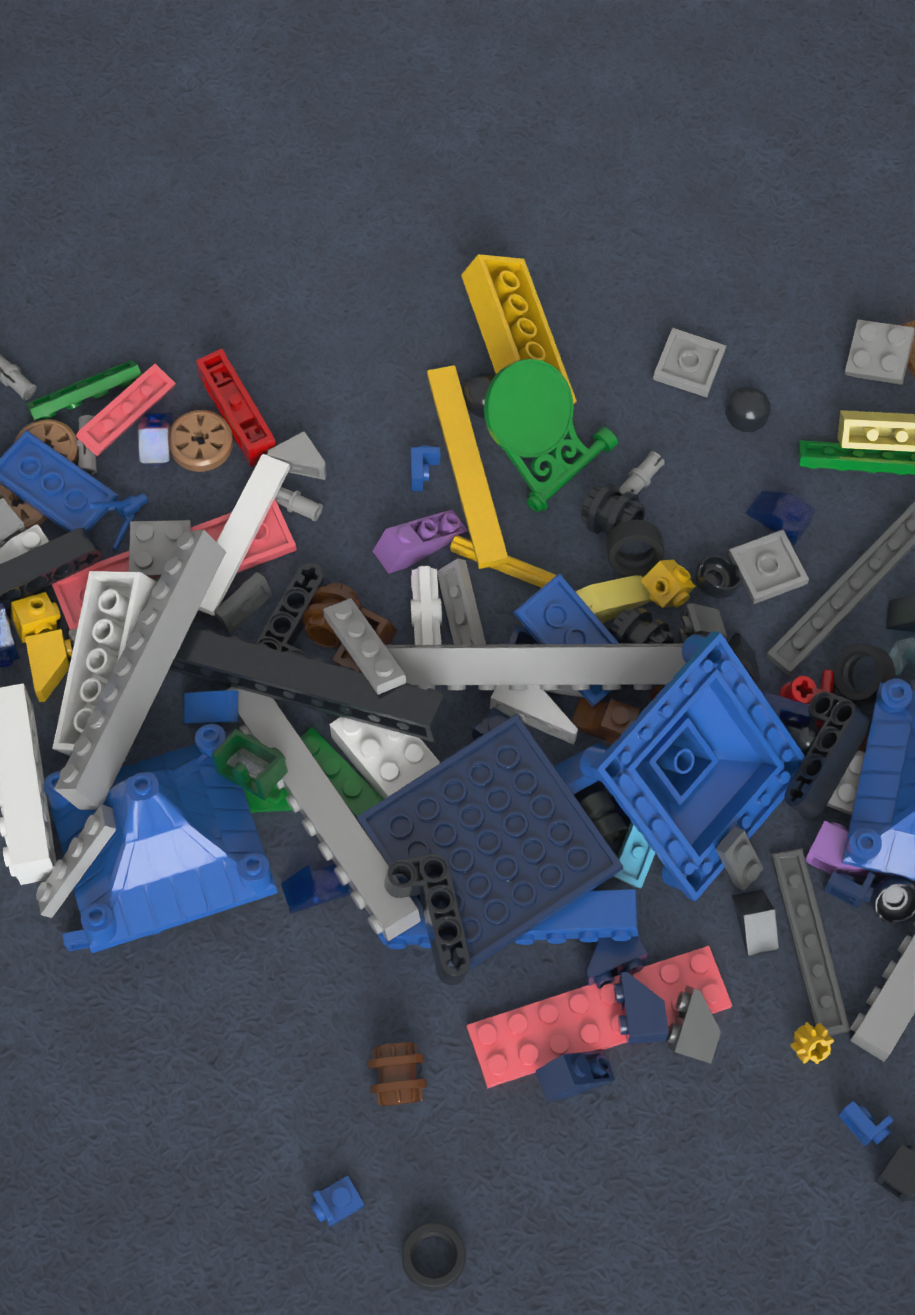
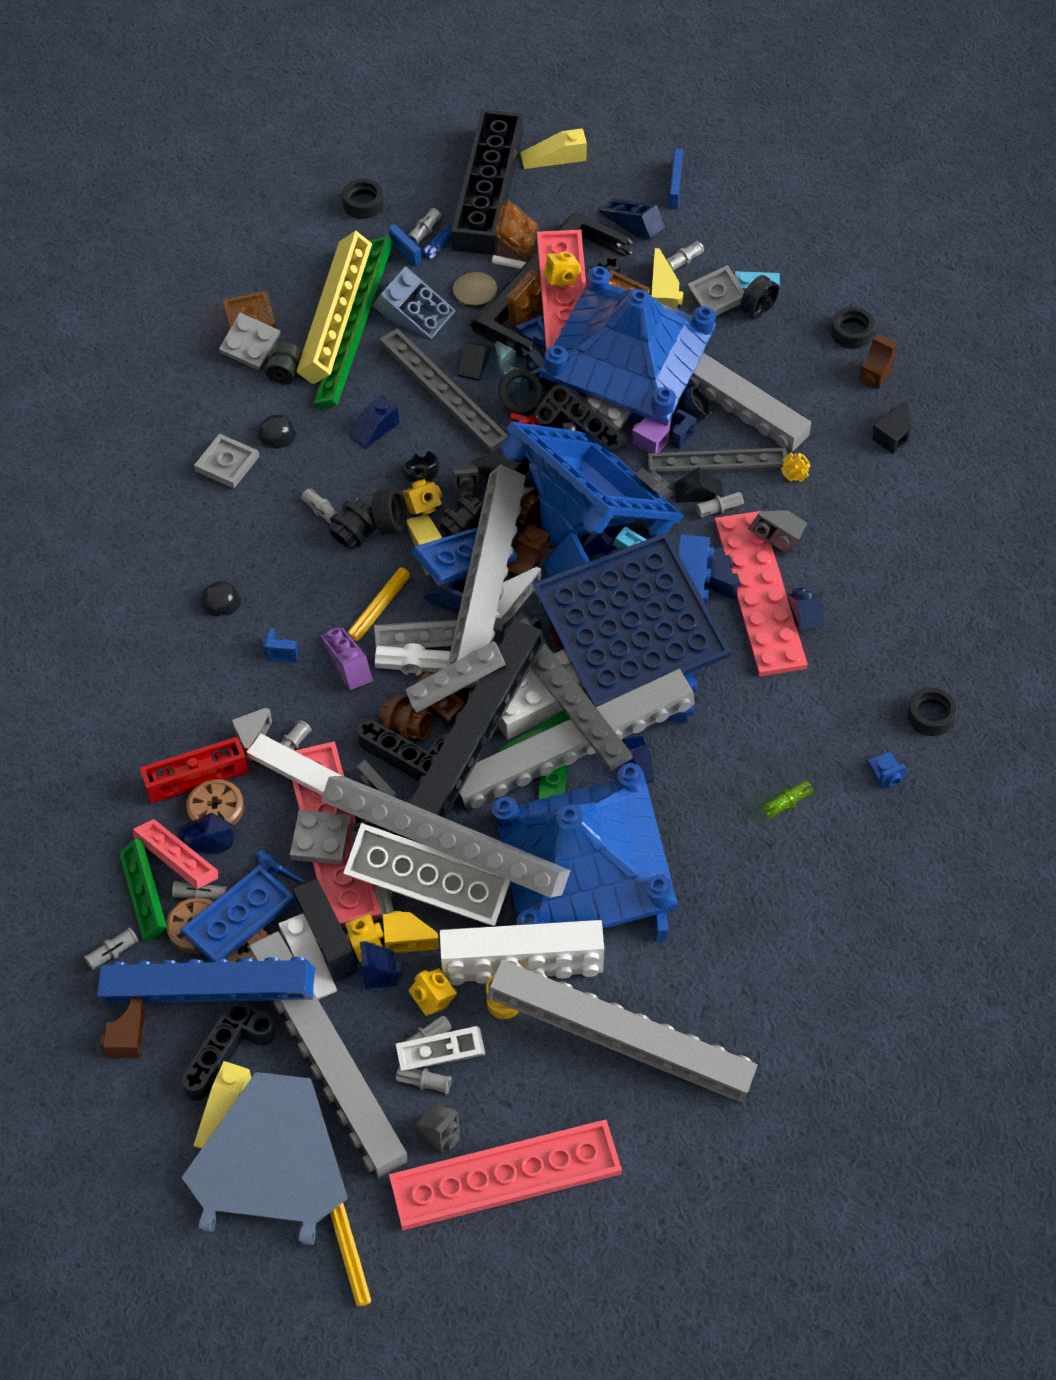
camera: 80 degrees left, 10 degrees down
(76, 861) = (603, 905): light grey plate -> none
(211, 707) = (475, 807): blue tile -> none
(249, 763) = (538, 773): dark green window -> none
(276, 1077) = (788, 799): none -> clear neon green pin
(365, 787) = (579, 708): none -> dark grey plate
(397, 1073) = (790, 715): reddish brown piece -> none
(435, 918) = (687, 650): black beam -> none
(467, 467) = (286, 616): yellow tile -> none
(510, 312) = (180, 562): yellow brick -> none
(529, 416) = (276, 553): green piece -> none
(643, 1011) = (765, 555): dark blue slope -> none
(733, 950) = (719, 504): none -> light grey axle
(768, 566) = (417, 436): light grey plate -> none
(852, 394) = (283, 363): none -> pearl dark grey wheel
(861, 1124) = (855, 449): blue bracket -> none

